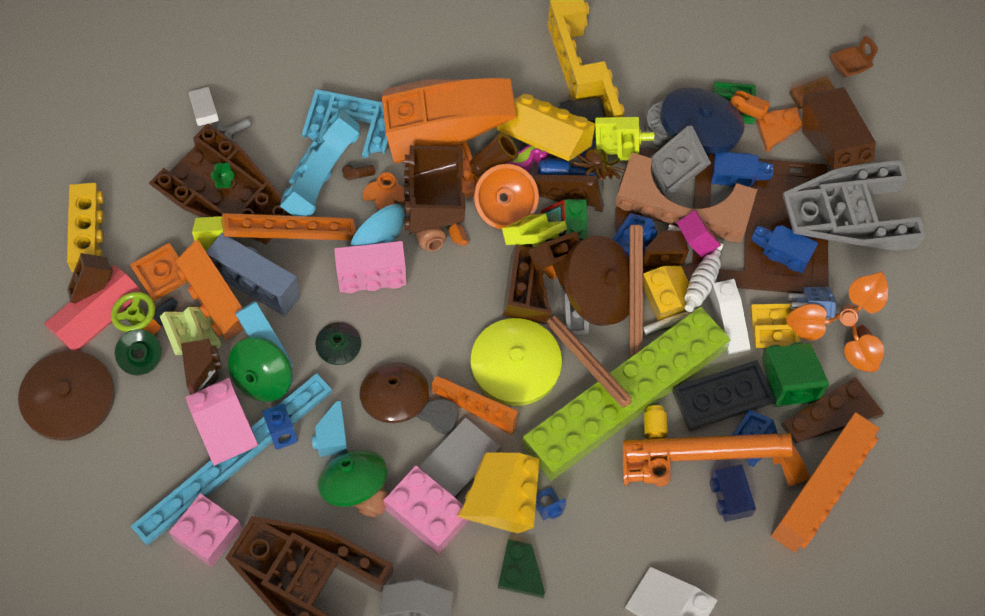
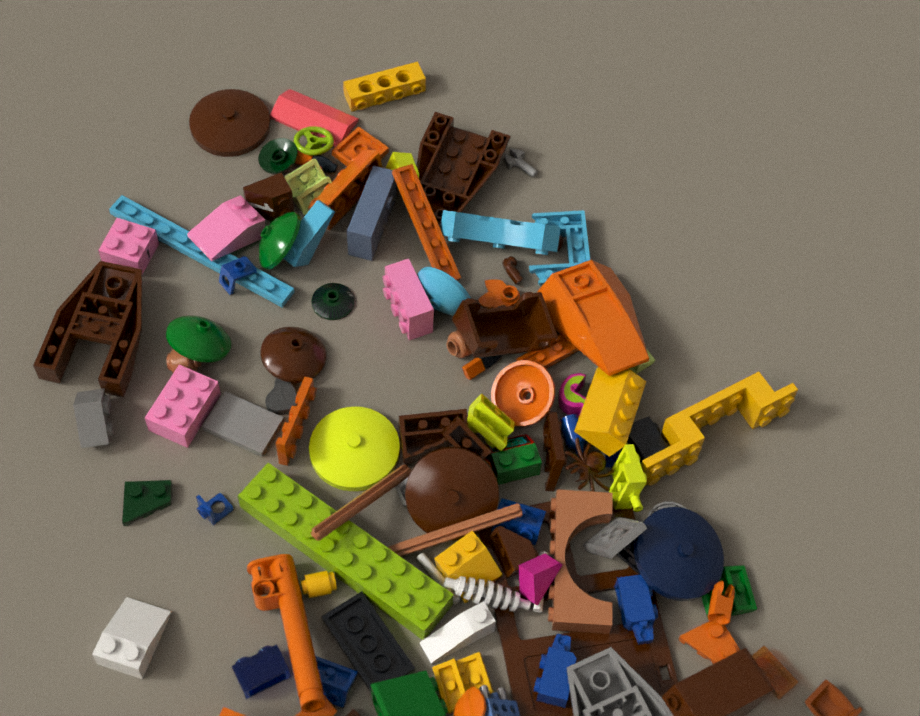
camera: 75 degrees right, 5 degrees down
(89, 277) = (336, 101): reddish brown slope -> none
(203, 106) = (531, 131): white tile -> none
(222, 175) = (463, 167): green plant -> none
(330, 433) = (242, 314): medium azure slope -> none
(497, 152) = (564, 370): reddish brown plant -> none
(503, 492) = (209, 458): yellow wedge -> none

